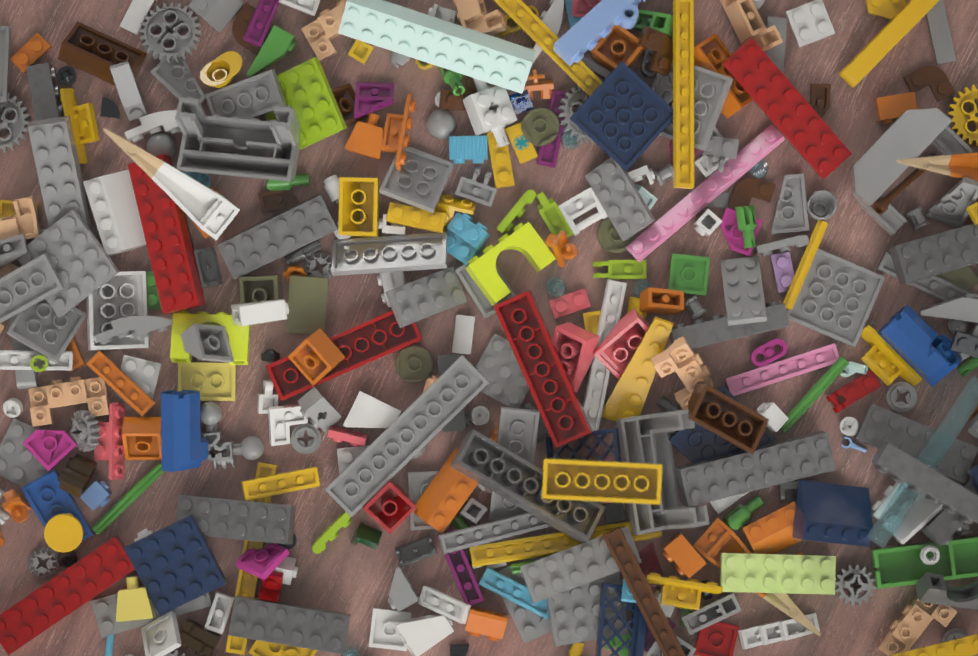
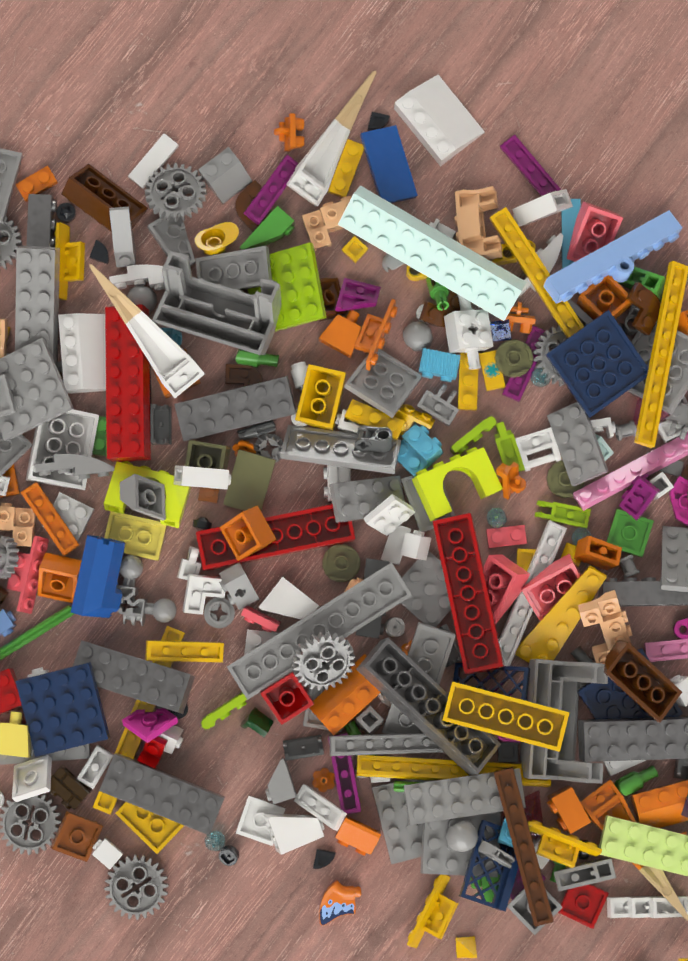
camera: 10 degrees right, 5 degrees down
(270, 327) = (208, 495): none -> dark orange plate
(417, 471) = (323, 660): none -> light grey gear
(420, 237) = (376, 439): none -> dark grey piece
(446, 573) = (323, 774): none -> orange plant
(450, 308) = (389, 515): none -> white plate
(482, 332) = (416, 545): none -> white brick
(512, 591) = (391, 809): medium azure tile -> none
(586, 603) = (462, 836): none -> light grey hair
(622, 613) = (496, 854): none -> light grey piece
(691, 238) = (639, 497): none -> magenta bracket

